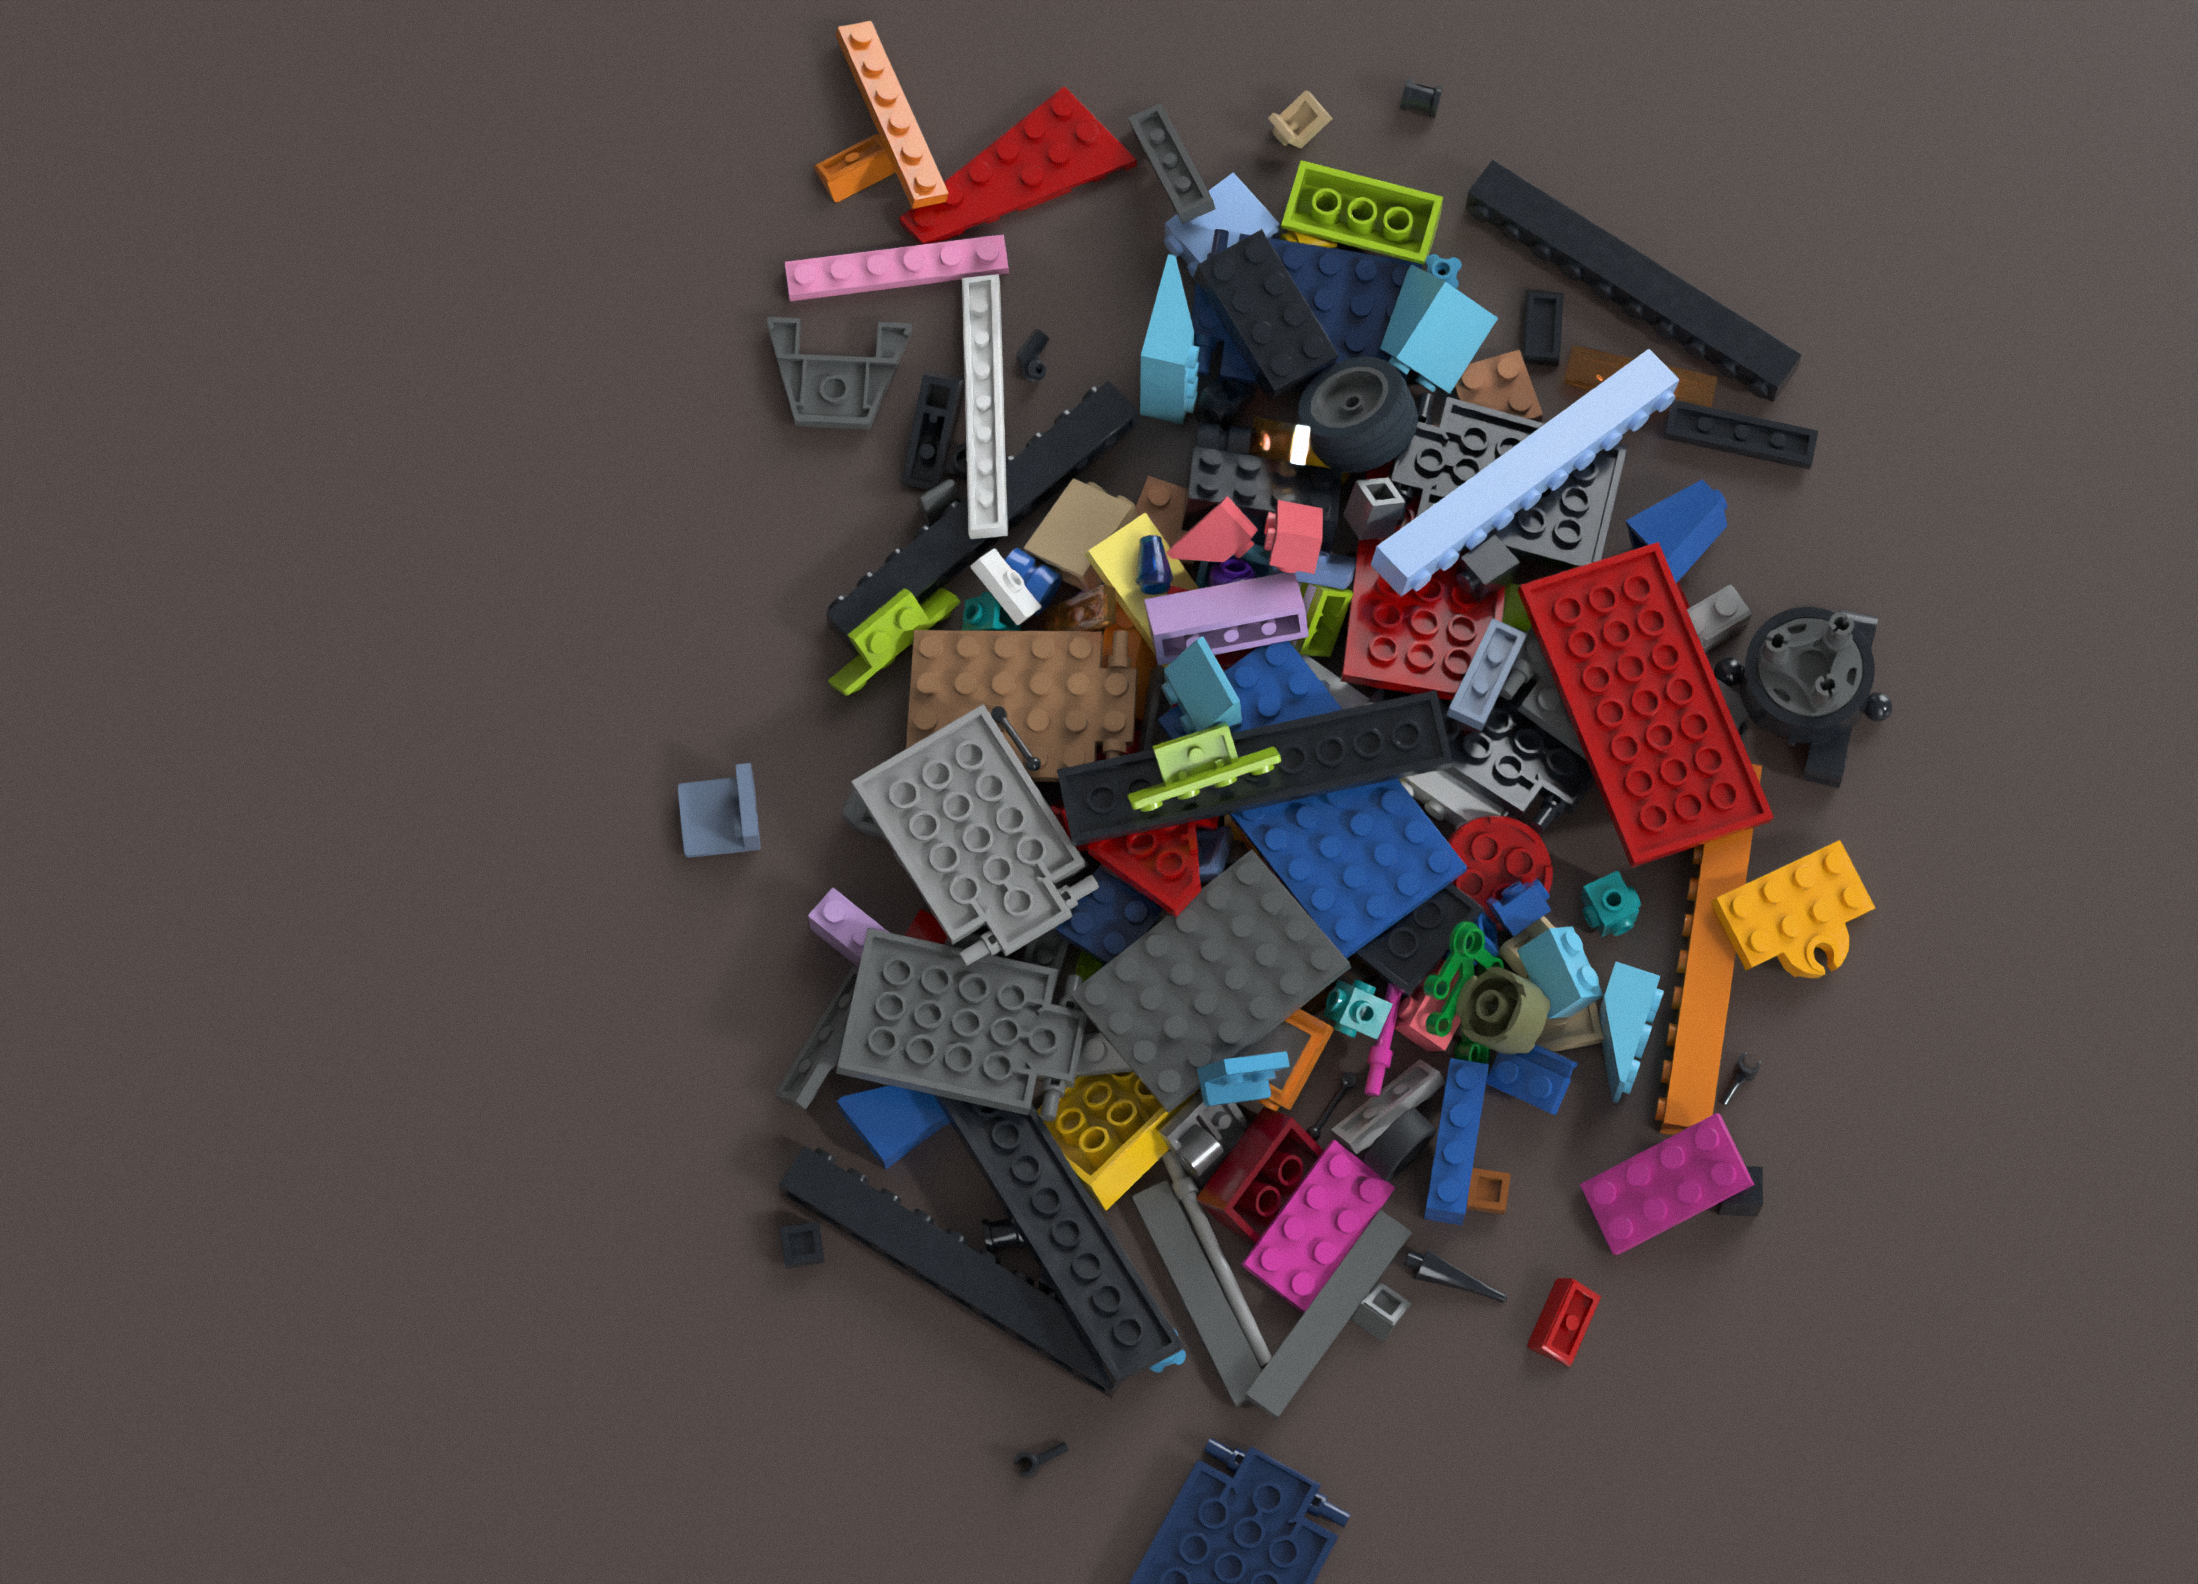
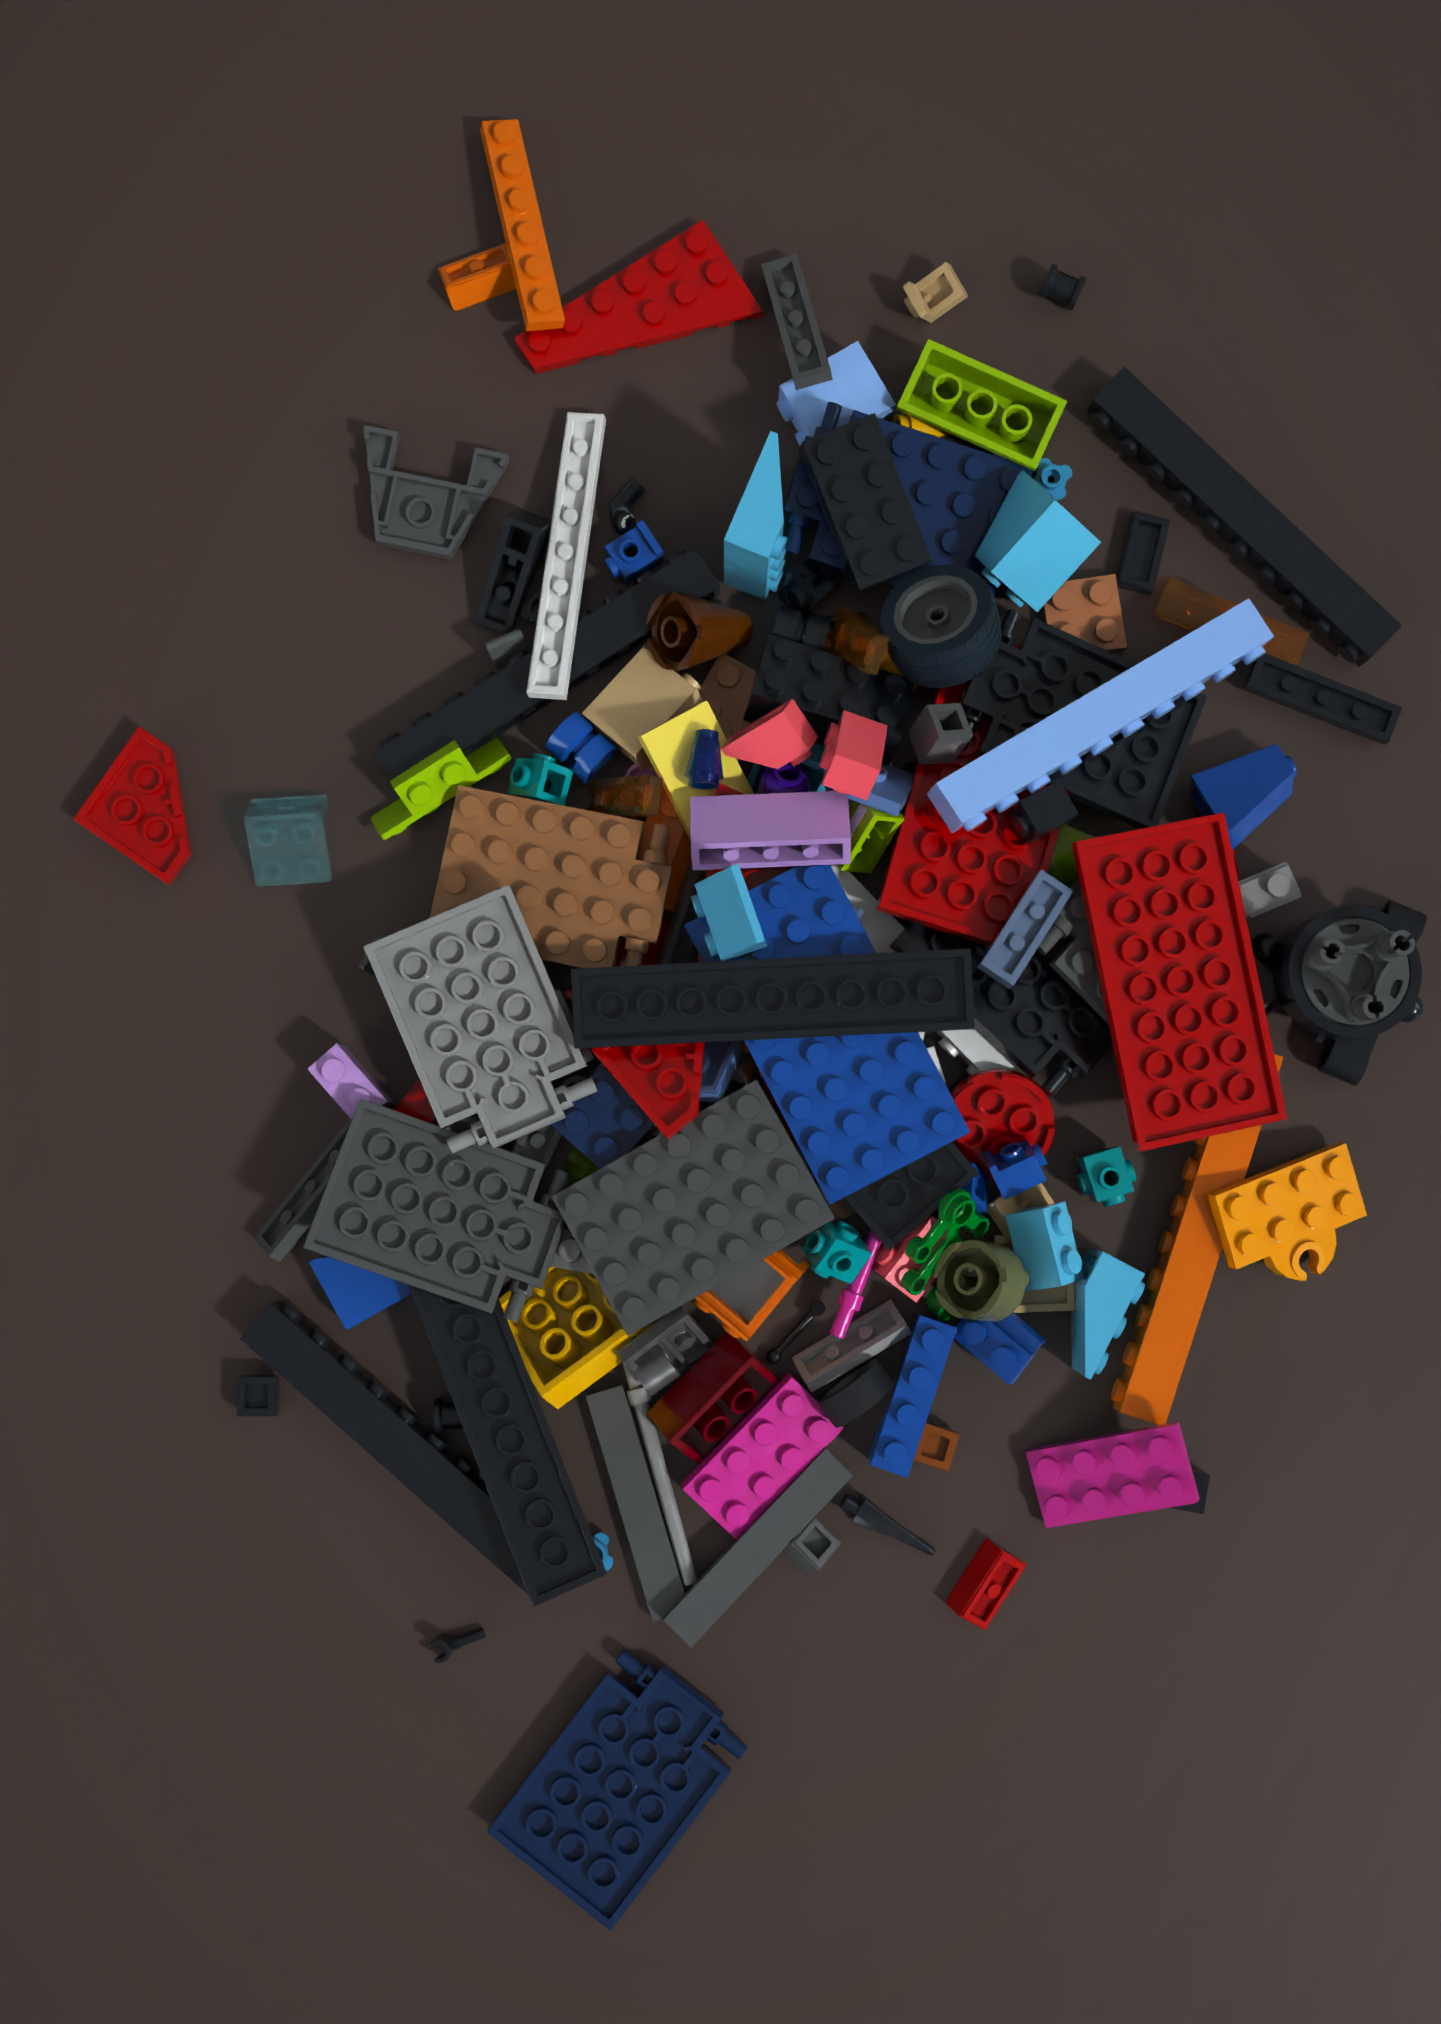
camera: 10 degrees right, 15 degrees up
(600, 703) = (141, 807): none -> red plate
(719, 815) = (242, 943): sand blue bracket -> none
(752, 713) = (288, 840): none -> clear light blue bracket
(896, 267) = (504, 390): bright pink plate -> none
(999, 715) = (527, 893): black hinge -> none
(1006, 586) = (555, 755): white plate -> none
(1044, 410) = (630, 568): none -> blue brick
(1120, 454) = (694, 630): none -> reddish brown cone
(1198, 762) = (714, 993): lime bracket -> none
(1240, 1078) = (705, 1316): dark azure bracket -> none
(1741, 1075) = (1200, 1366): black hand -> none

